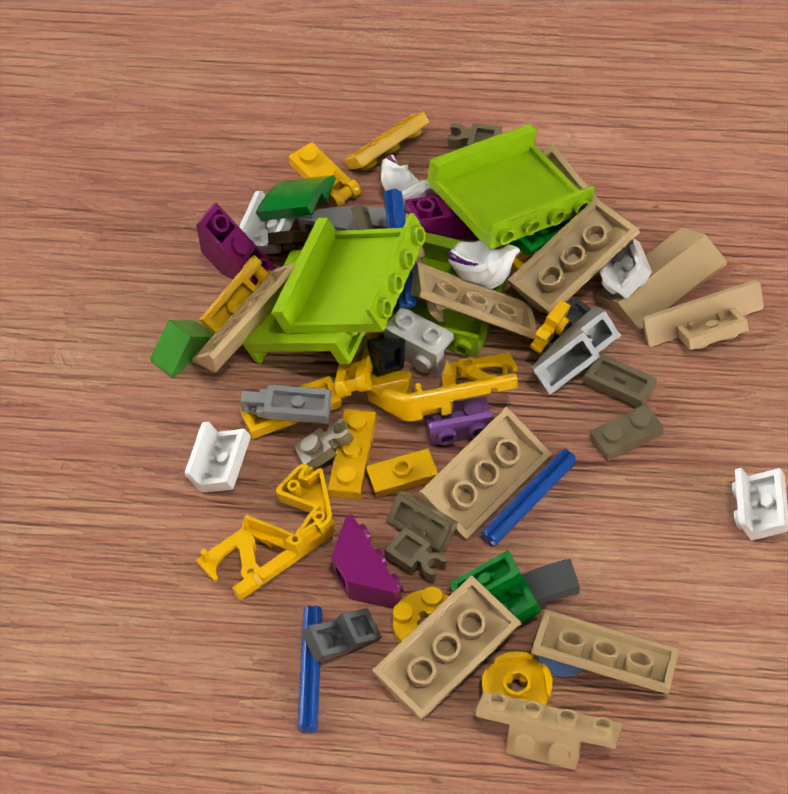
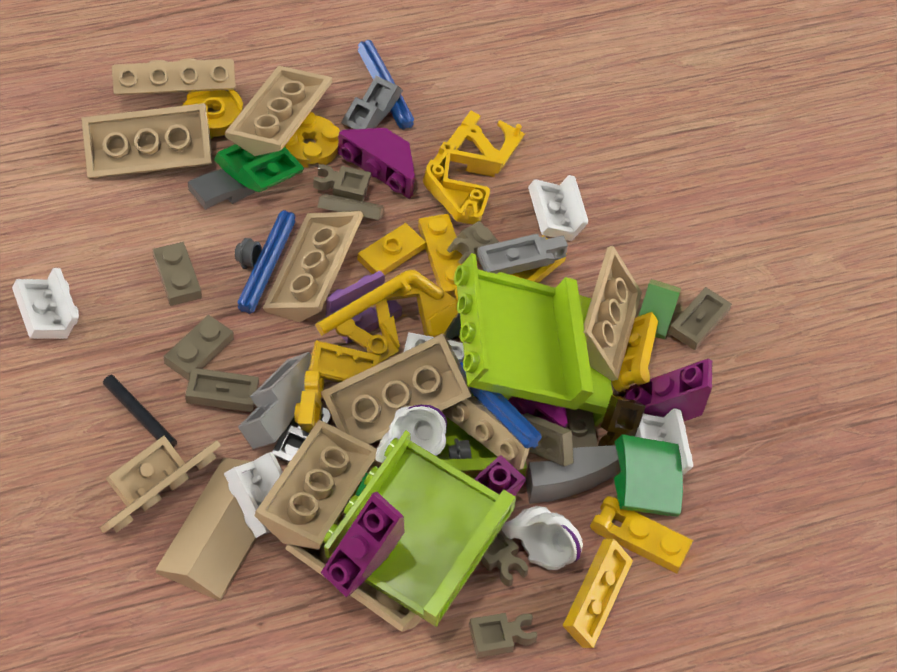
camera: 145 degrees right, 0 degrees up
(151, 320) = (700, 318): none -> dark tan plate
(440, 261) = (460, 450): none -> dark grey plate
(507, 348) = (340, 362): none -> yellow plate
(545, 506) = (247, 252): none -> dark grey plate
(559, 171) = (365, 545): none -> magenta slope
(621, 512) = (177, 273): none -> dark tan plate
(700, 390) = (137, 409): none -> black bar

